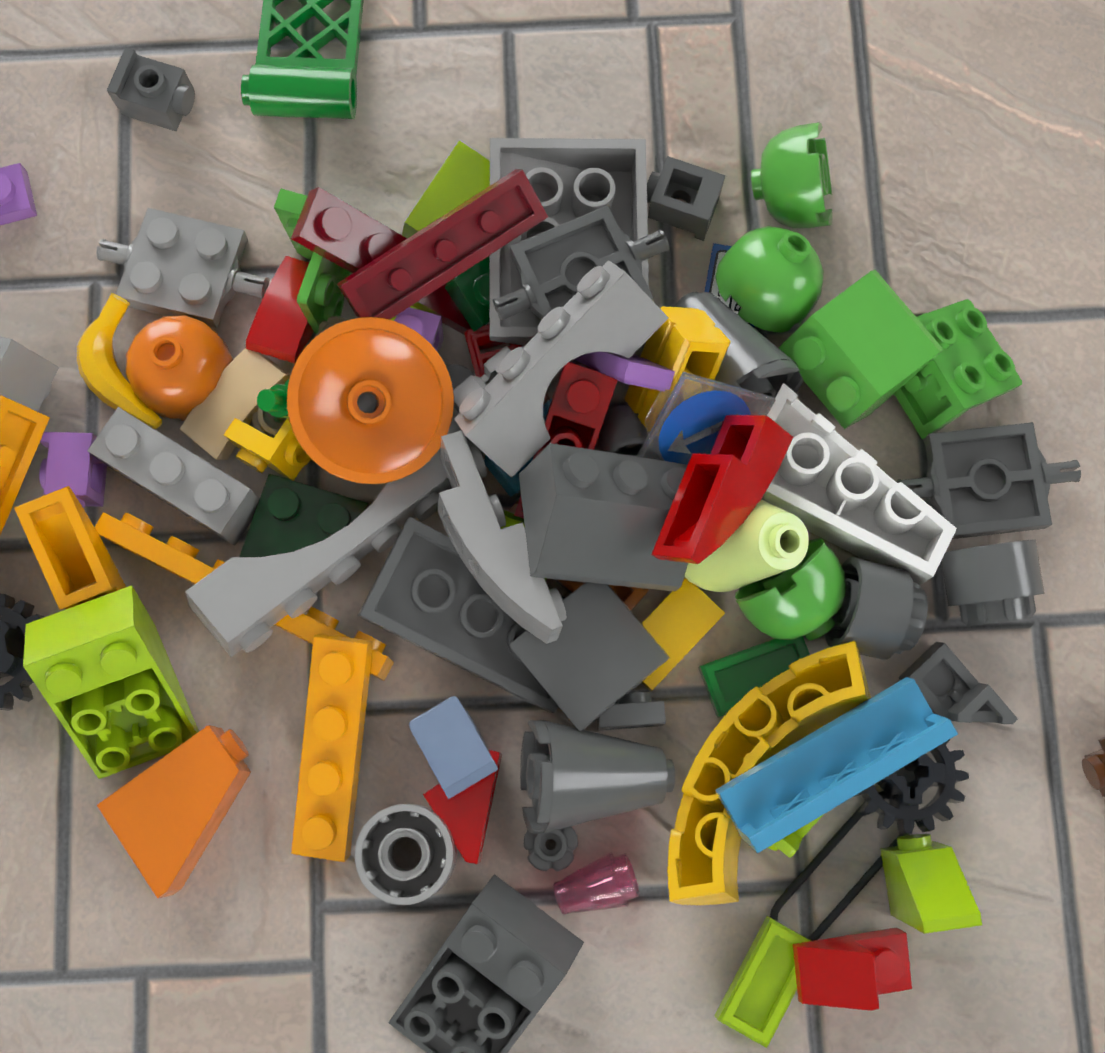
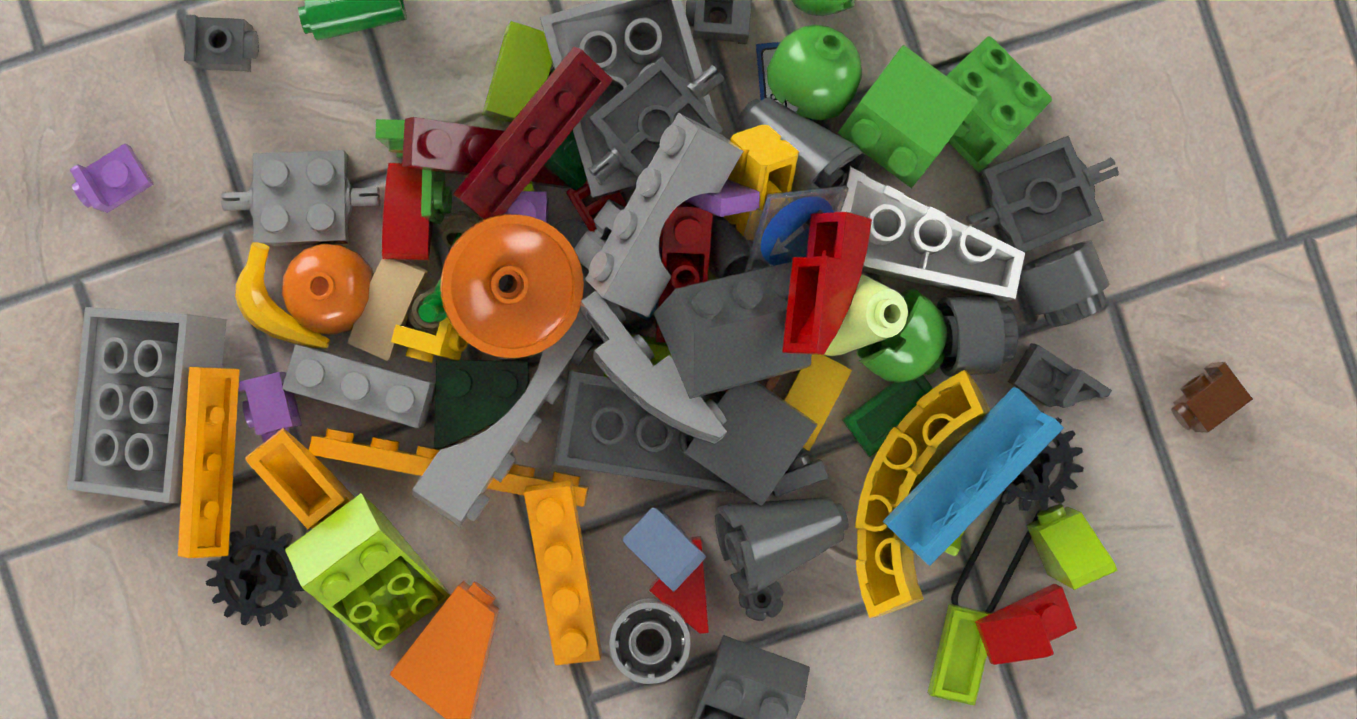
camera: 20 degrees left, 10 degrees up
(598, 886) = (809, 619): clear pink cone -> none

